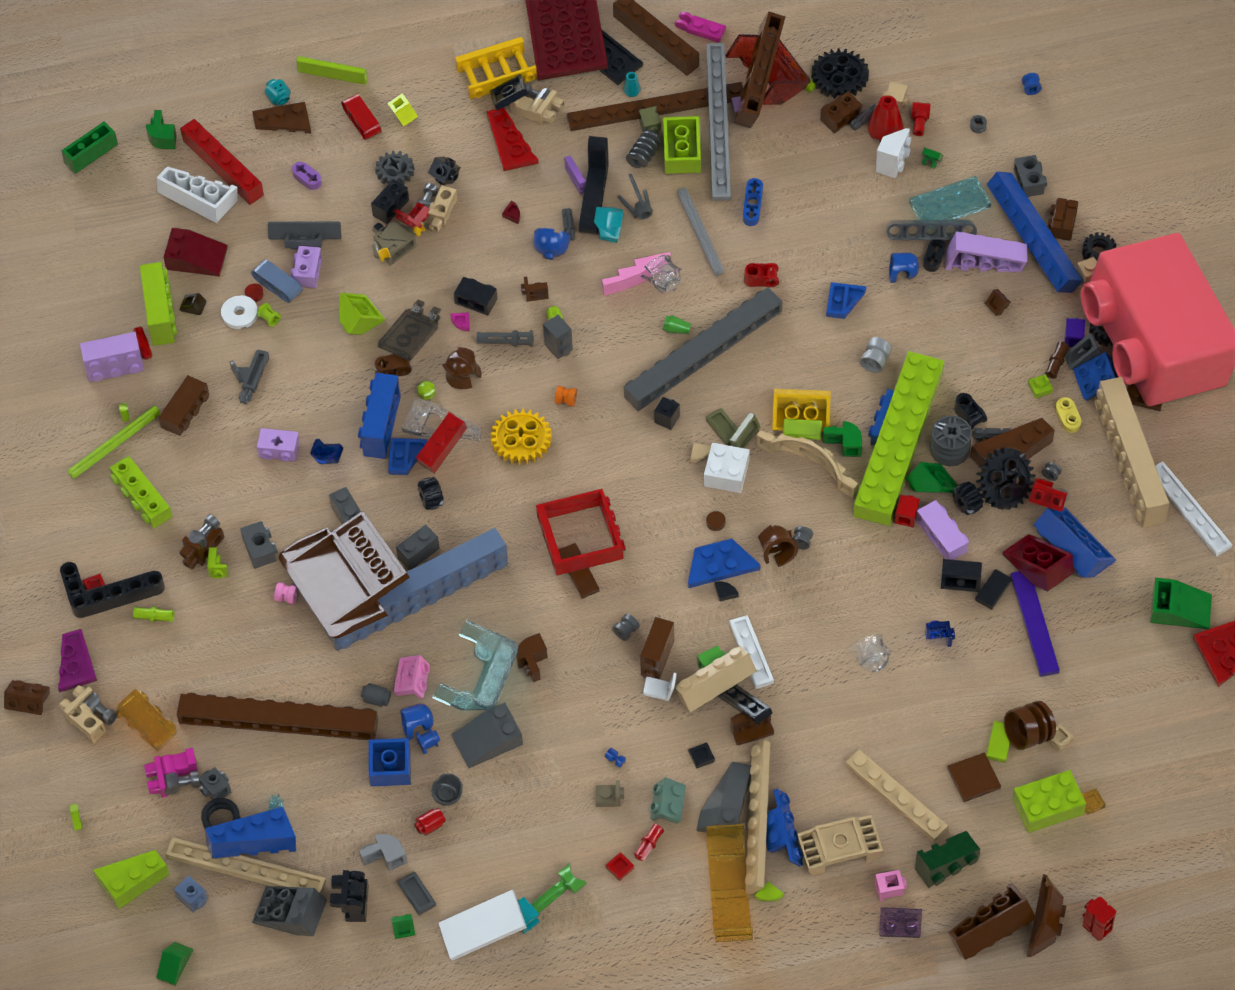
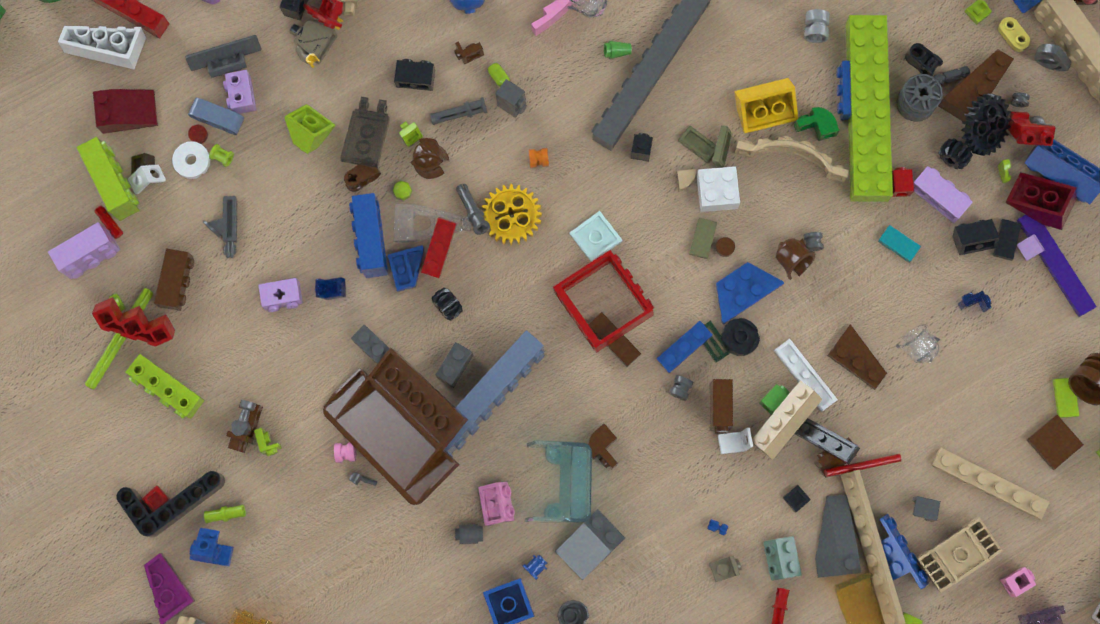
camera: 15 degrees left, 20 degrees up
(125, 631) = (207, 550): none -> blue tile
(132, 428) = (133, 323): none -> red brick
(190, 312) = (142, 177): none -> white bracket
(259, 554) = (290, 401): dark grey brick -> none
(277, 716) = (382, 587): reddish brown brick -> none
(288, 618) = (356, 477): none -> dark grey hand
(414, 716) = (518, 549): blue helmet -> none
(451, 342) = (410, 133): none -> lime tile
(461, 321) = (409, 105): dark pink tile -> none
(486, 424) = (475, 215): none -> dark grey pin
(595, 476) = (595, 236): none -> light aqua tile
(643, 593) = (684, 346): none -> blue plate
(669, 585) = (722, 355): none -> clear green tile
(697, 507) = (703, 238): none -> olive tile
(700, 600) = (740, 337): none -> black tile
(725, 591) = (759, 318): black tile -> none
(777, 742) = (863, 465): none -> red bar
(803, 428) = (774, 125): lime tile -> none
(807, 651) = (857, 358): none -> reddish brown wing
(823, 794) = (926, 508): none -> dark grey panel
(886, 564) = (899, 243): none -> teal tile
(931, 479) = (916, 144): green slope -> none
(947, 859) = (1062, 538): dark green wedge -> none
(1013, 528) = (1003, 168): none -> lime tile
(1013, 600) = (1030, 247): none -> lavender tile
(1099, 446) = (1052, 57): none -> dark grey piece

